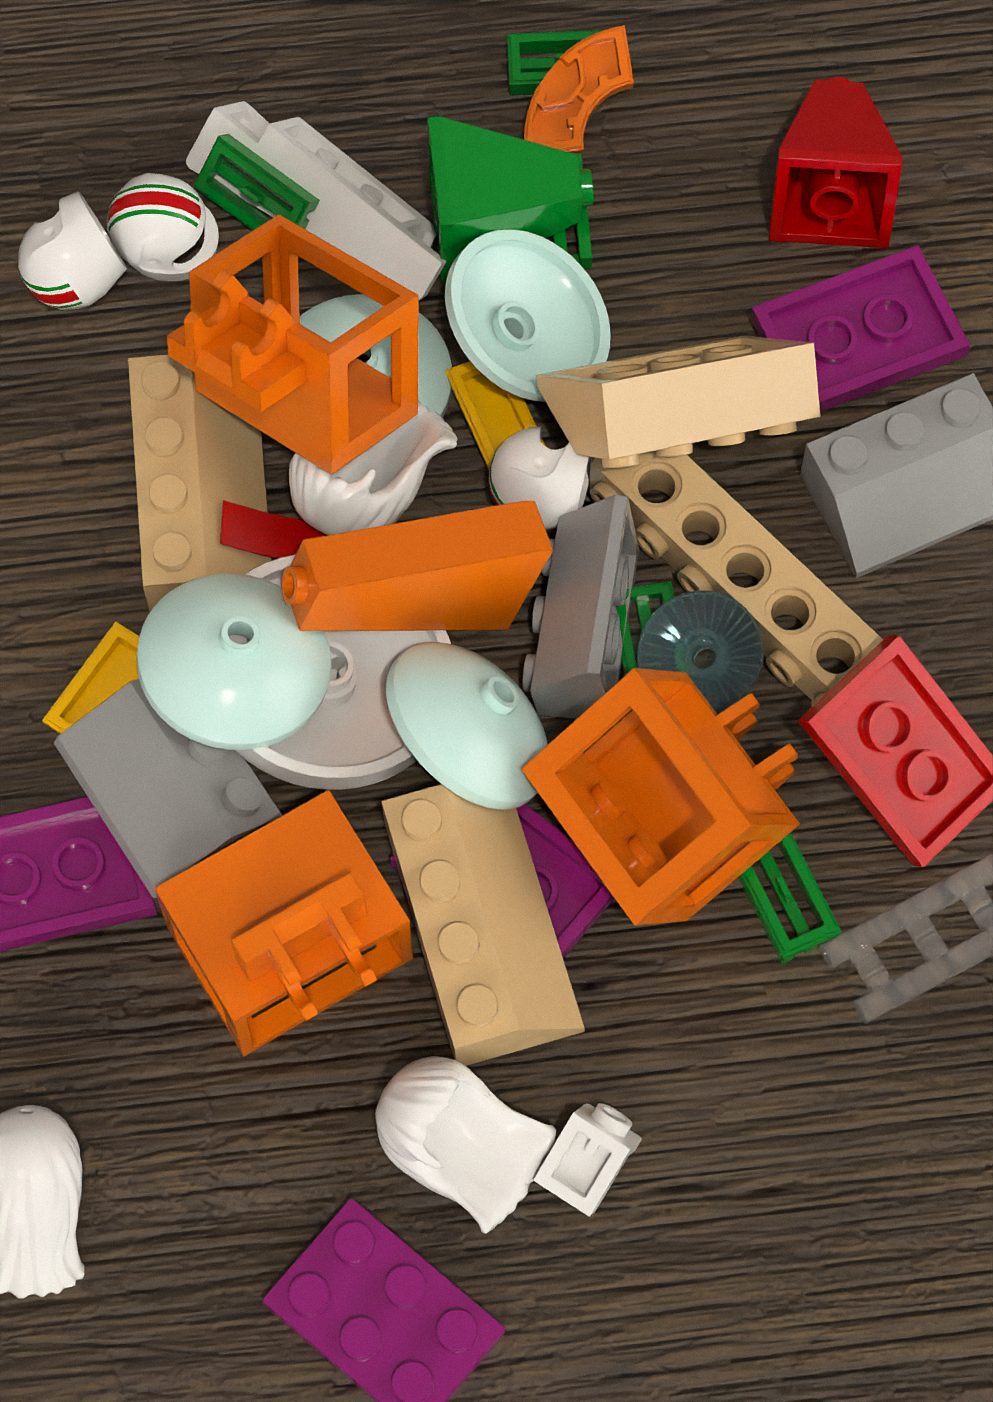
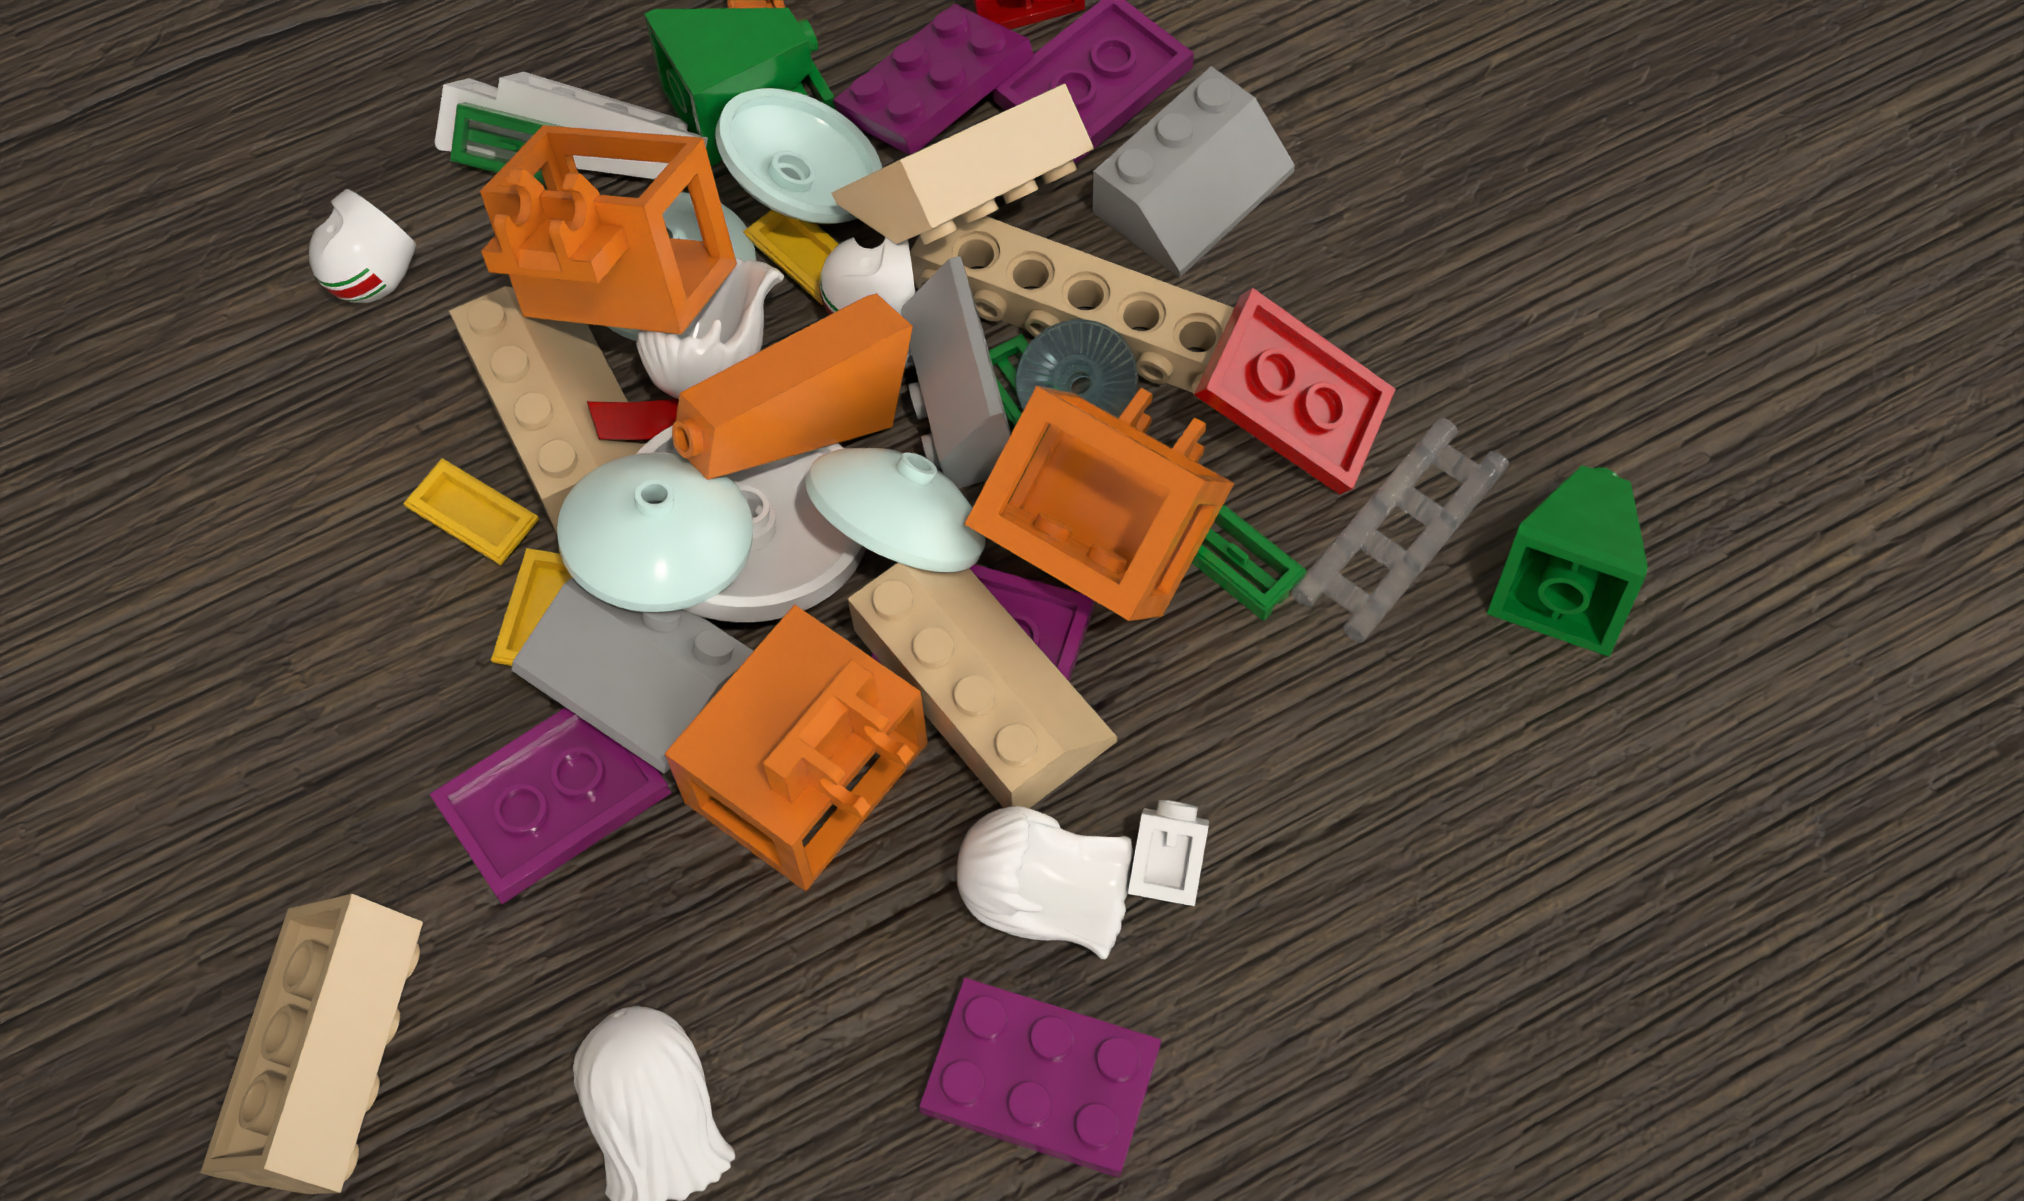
camera: 20 degrees left, 5 degrees down
(78, 564) = (471, 511): none -> yellow tile
(156, 222) = (428, 194): white helmet -> none
(697, 275) = (933, 78): none -> magenta plate

